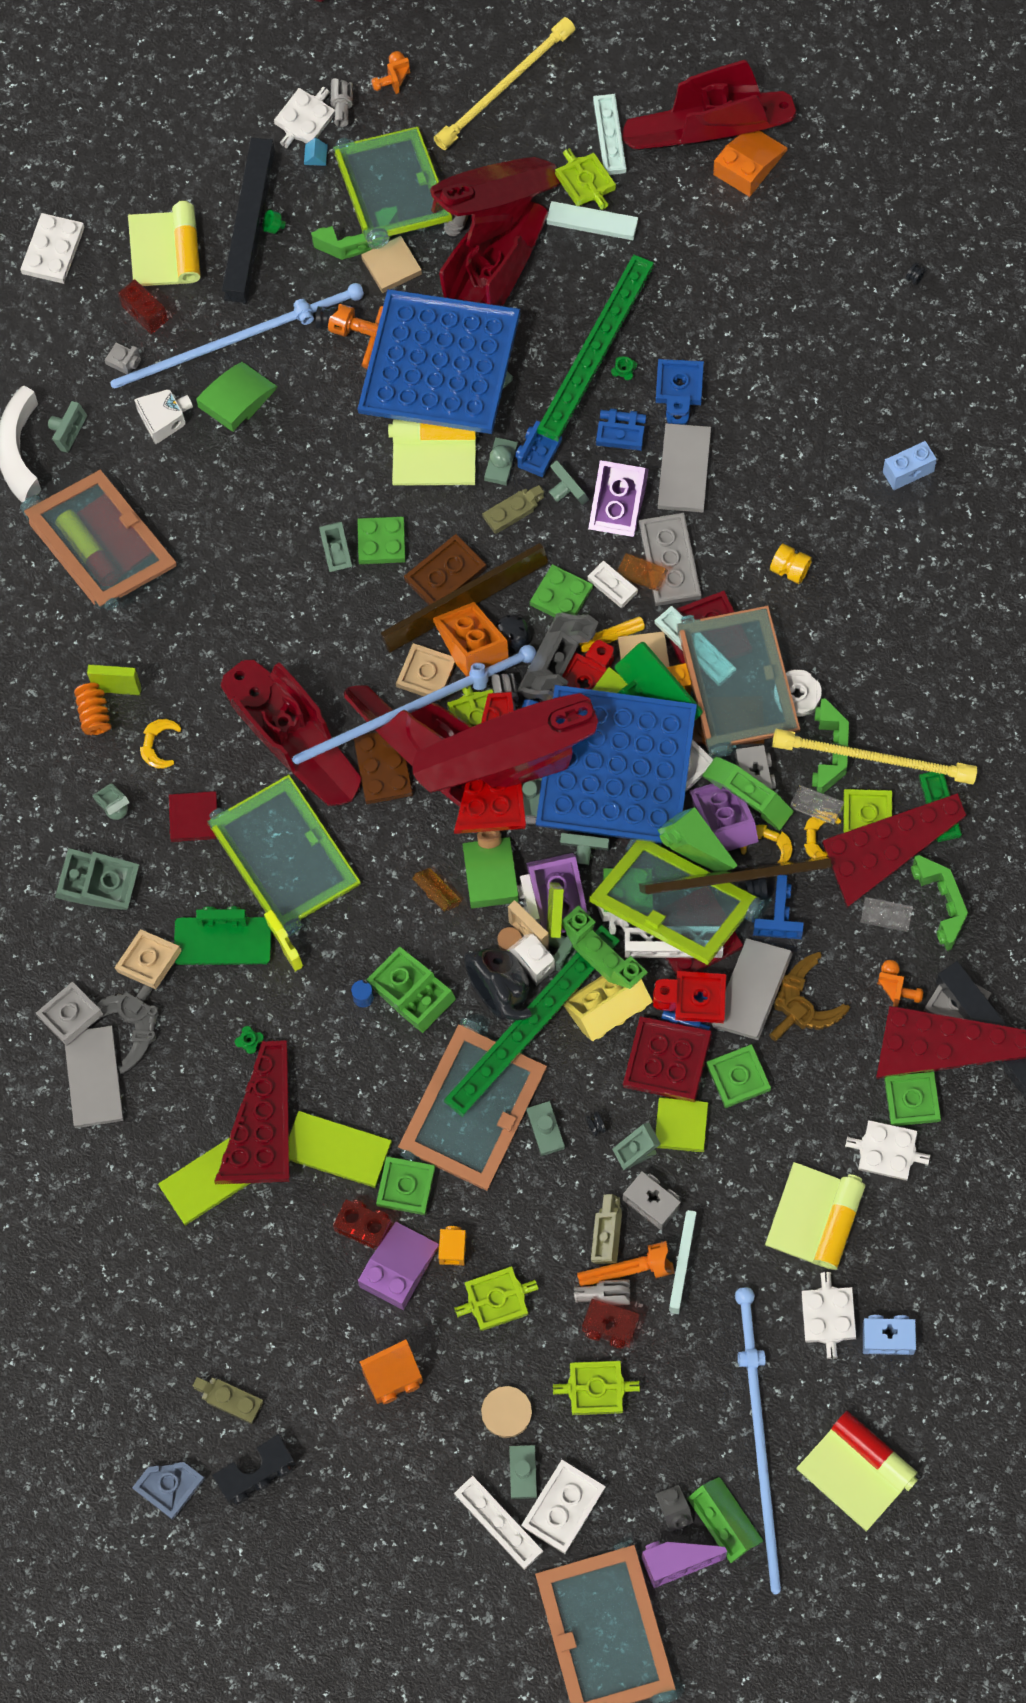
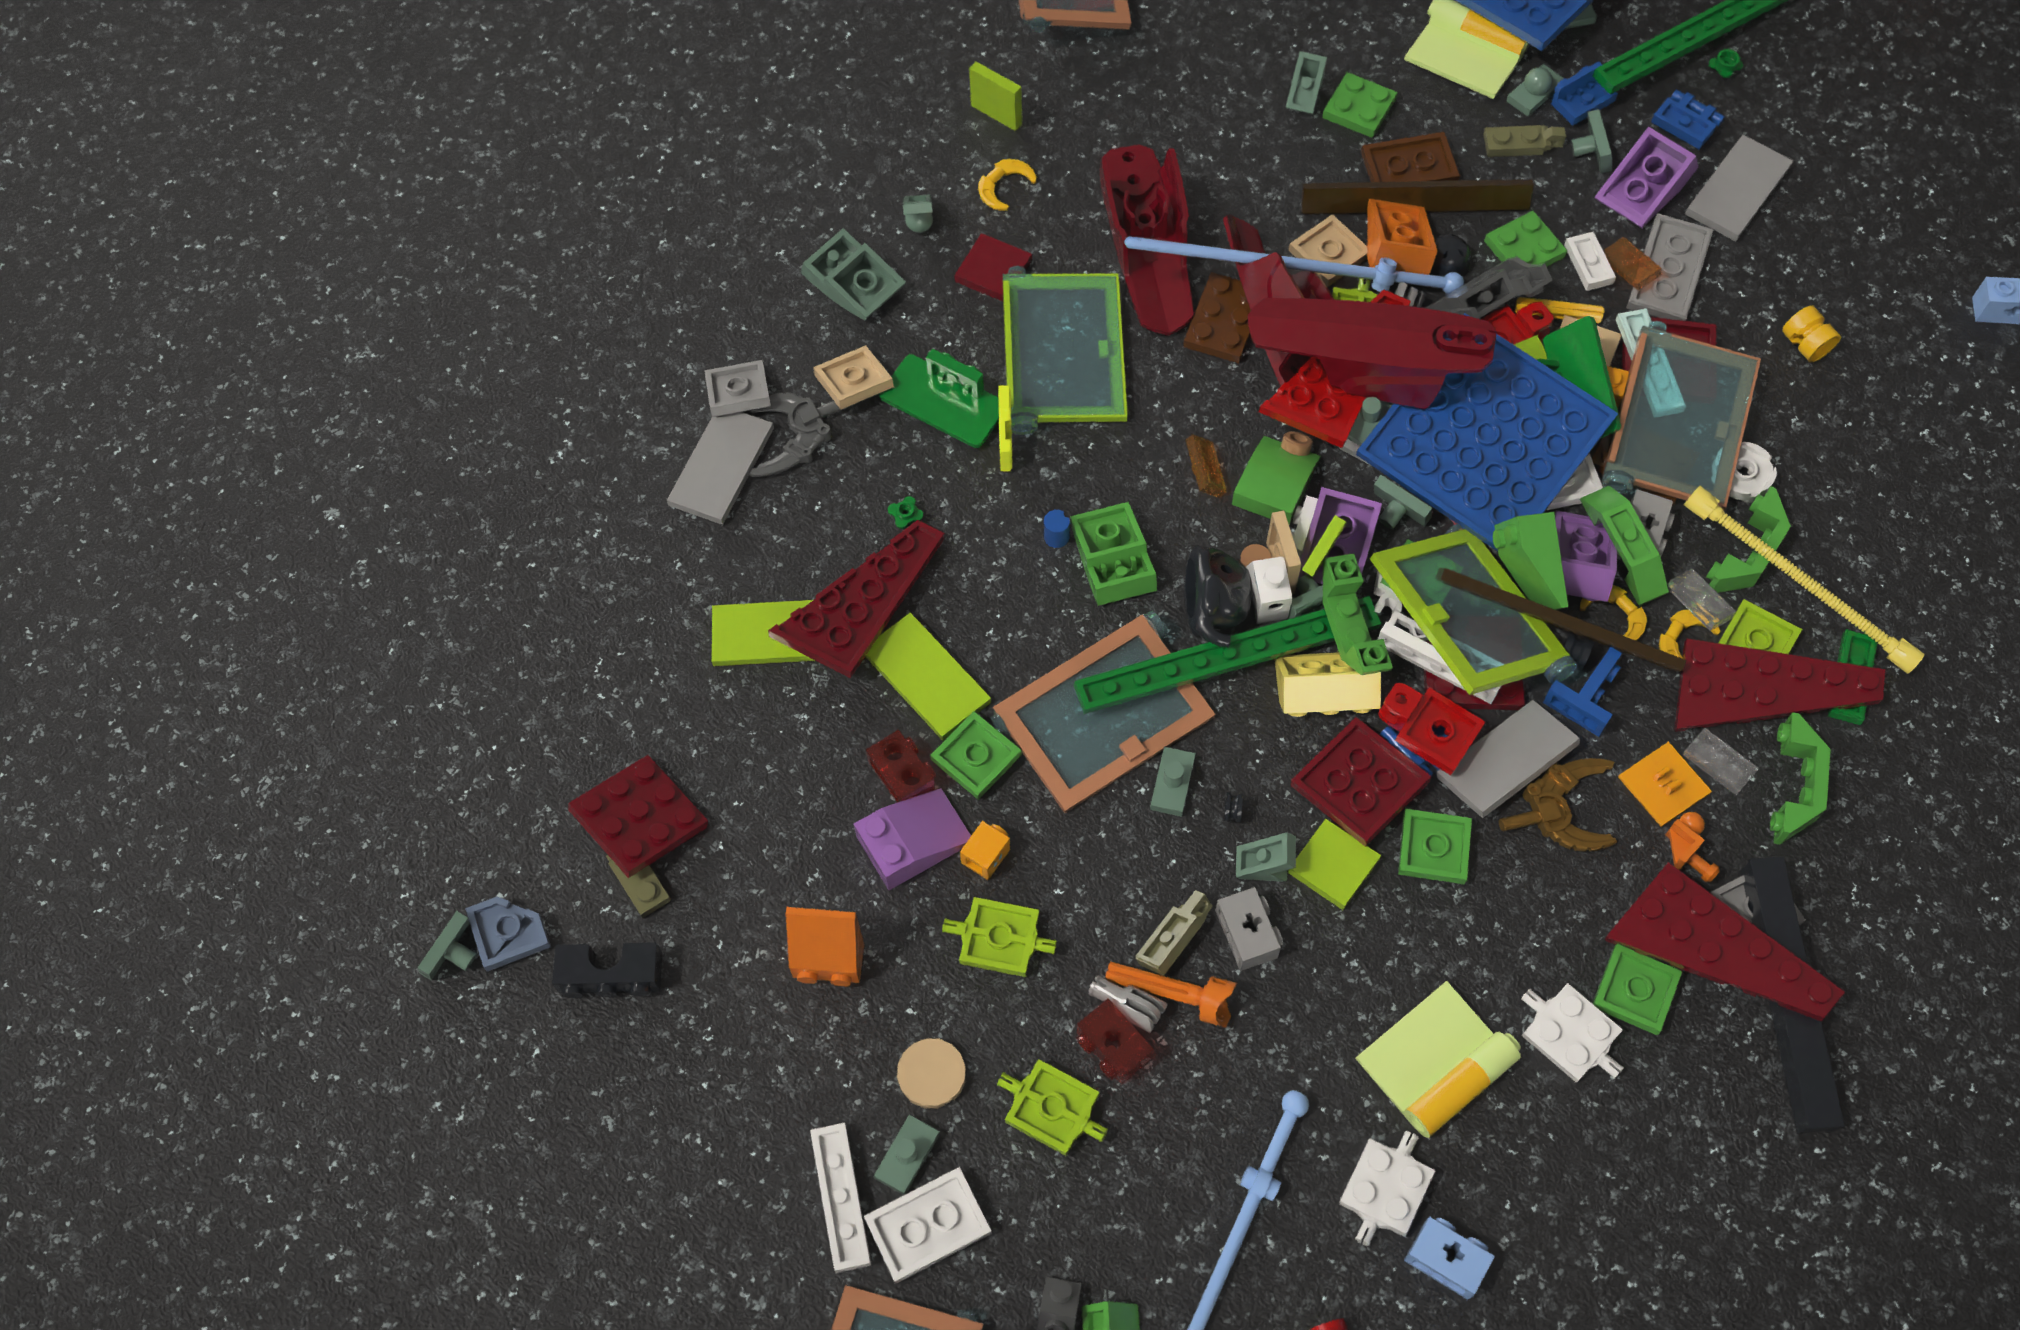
camera: 30 degrees right, 5 degrees down
(91, 709) = (956, 115): orange piece -> none
(139, 1520) = (448, 948): none -> sand green tile
(206, 1358) = (637, 815): none -> dark red plate
(679, 397) = (1770, 115): blue plate -> none
(682, 1262) = (1242, 1020): light aqua tile -> none
(859, 949) = (1664, 784): none -> light orange piece

